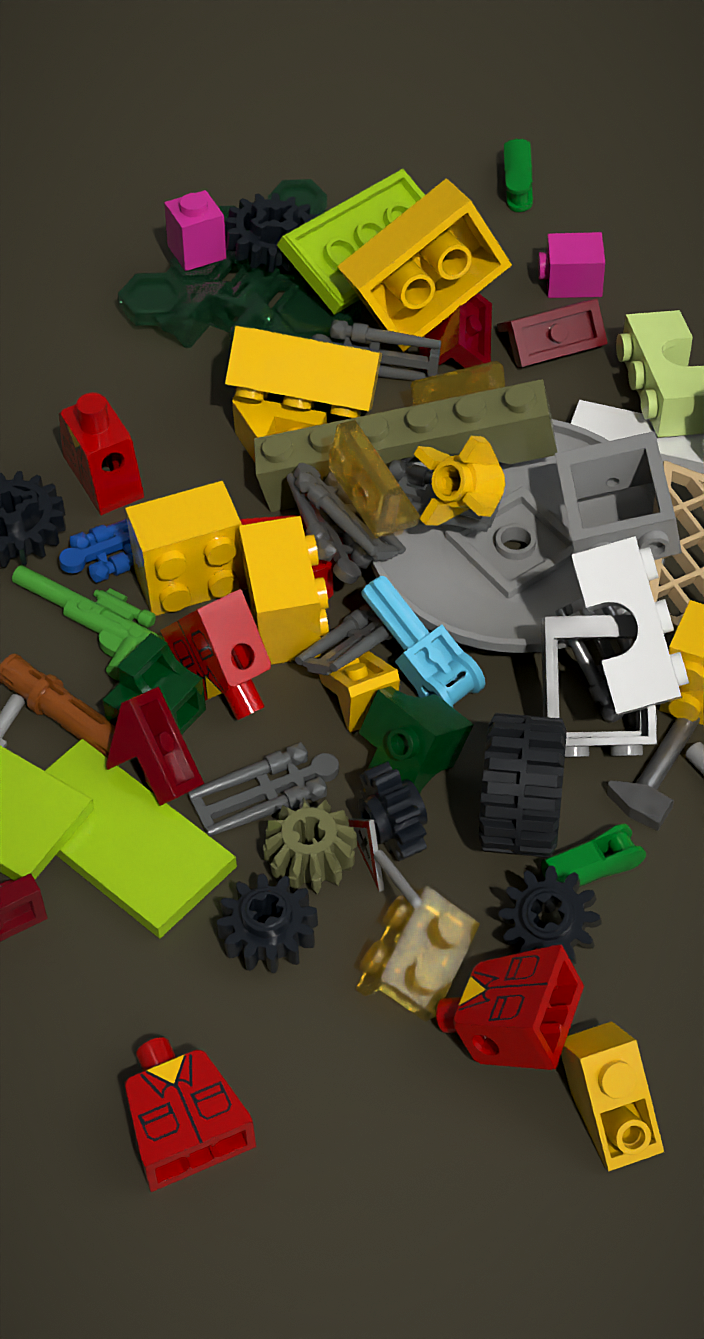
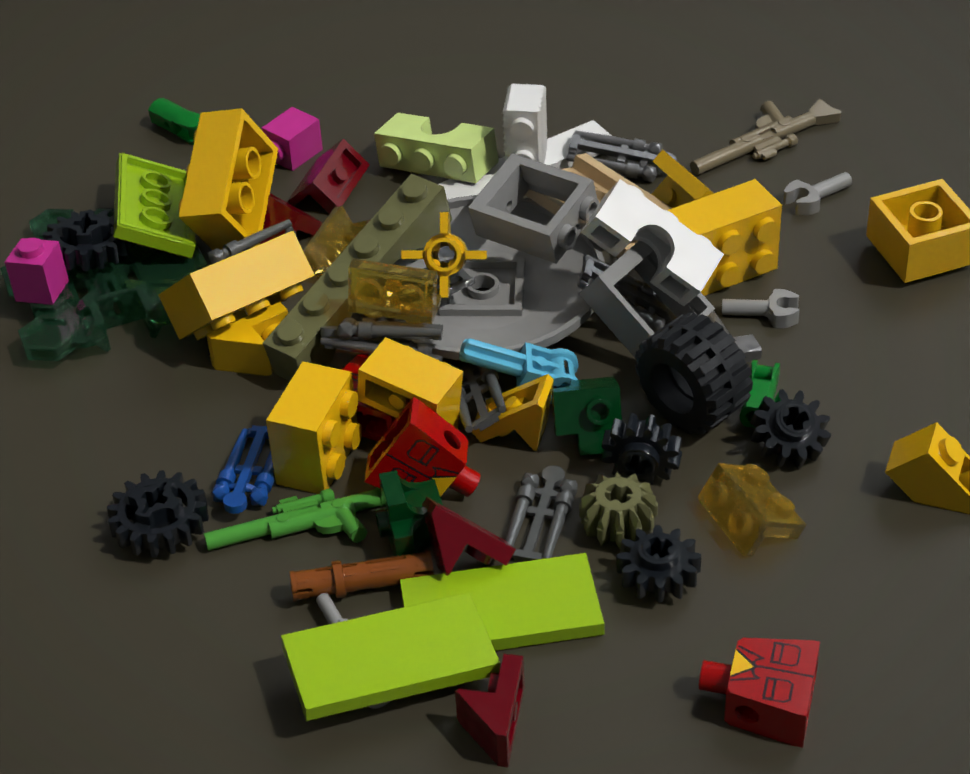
camera: 50 degrees left, 10 degrees down
(90, 434) = (164, 430): red torso -> none
(377, 858) = (649, 472): light grey piece -> none
(516, 1009) = (849, 476): red torso -> none

